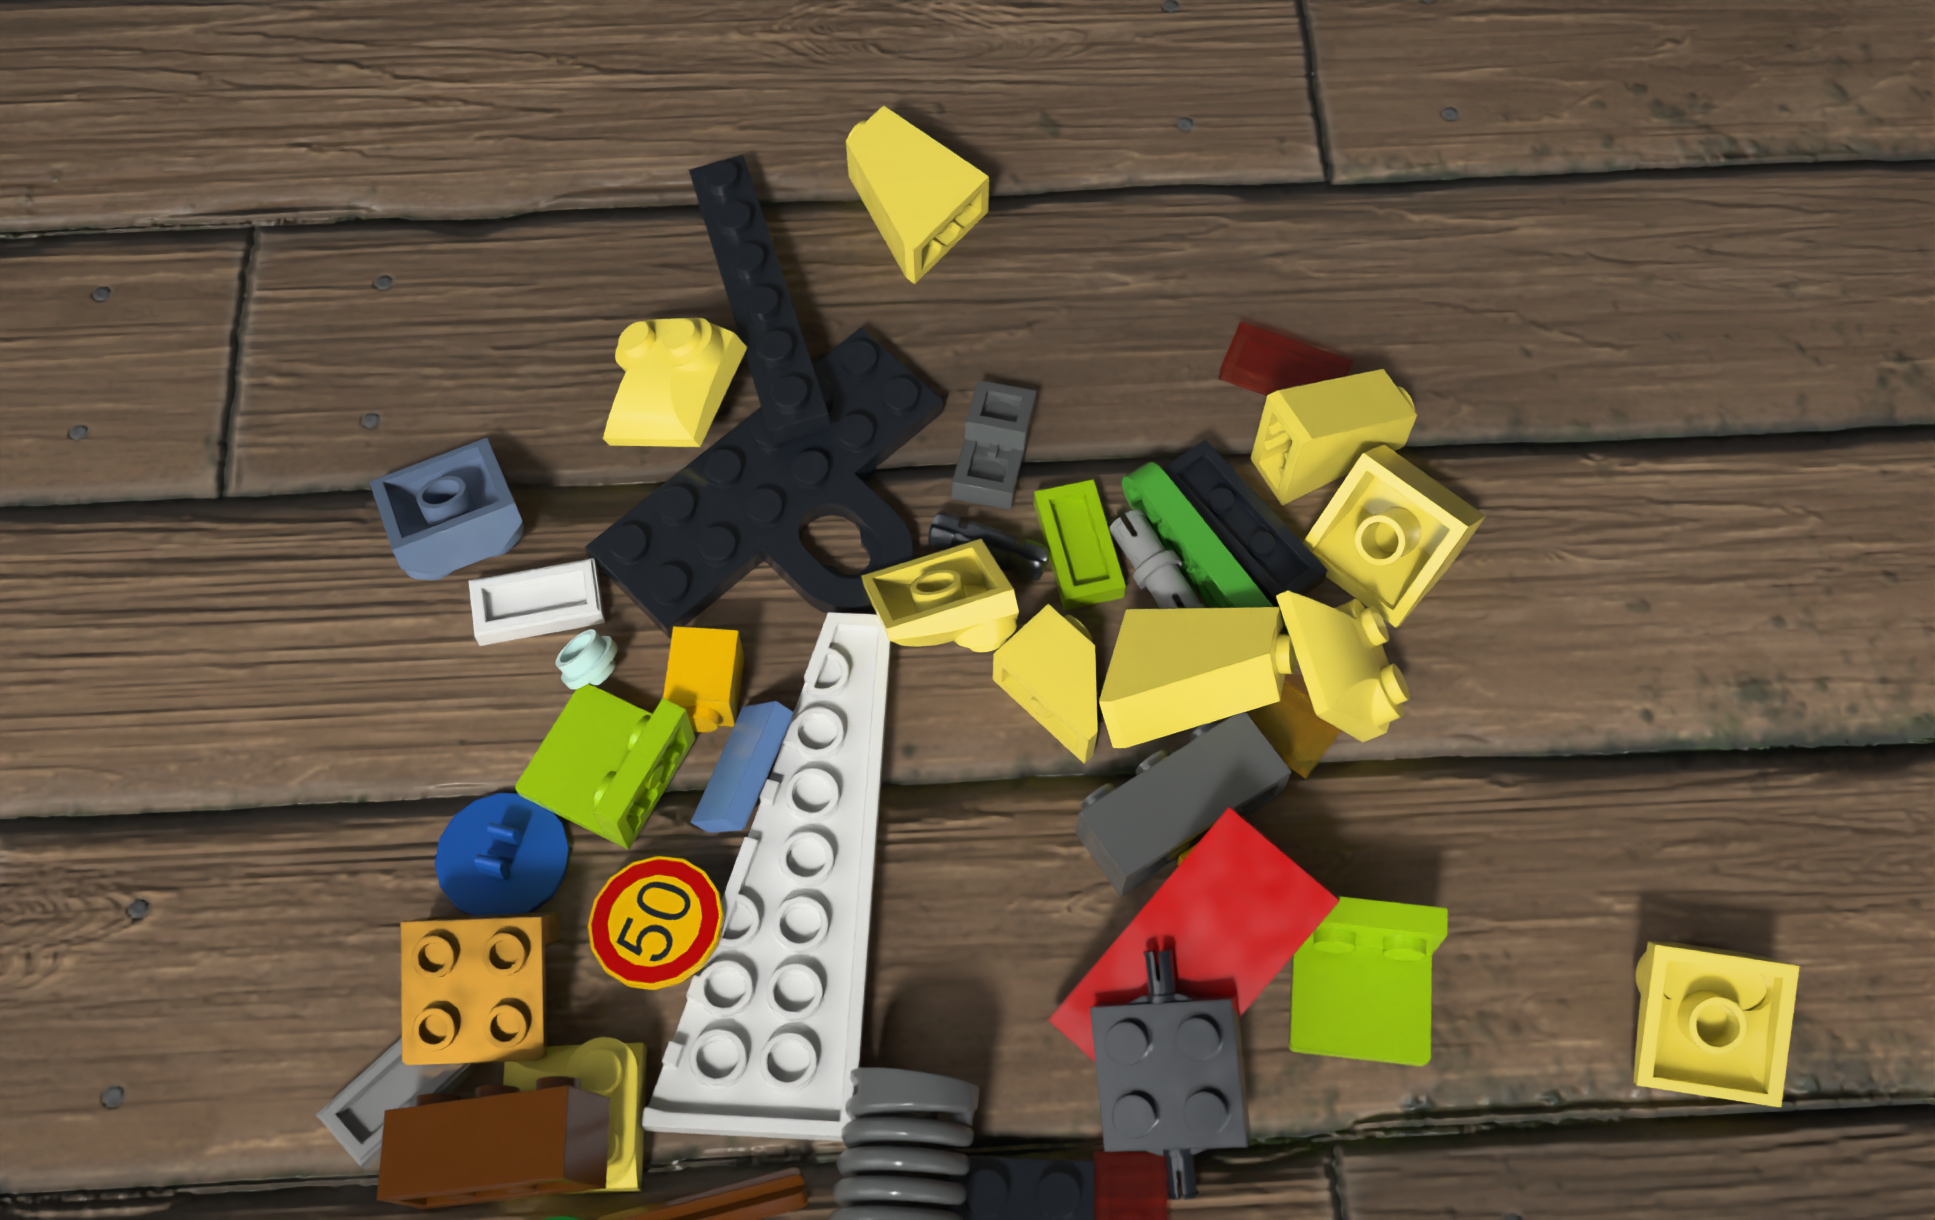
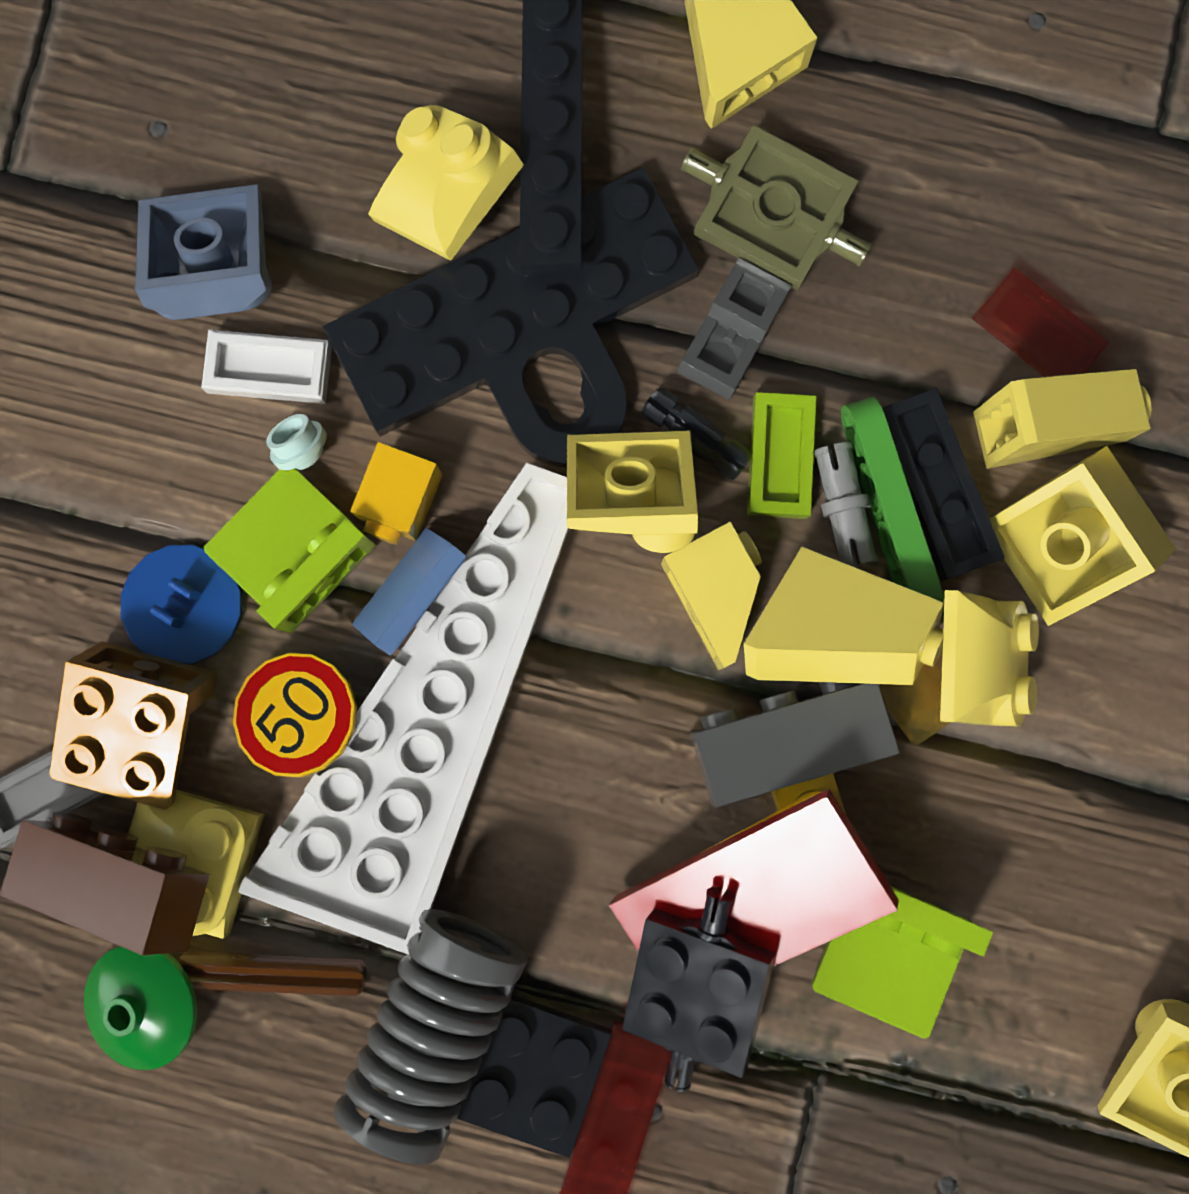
camera: 15 degrees right, 20 degrees up
(998, 329) = (775, 207): none -> olive plate

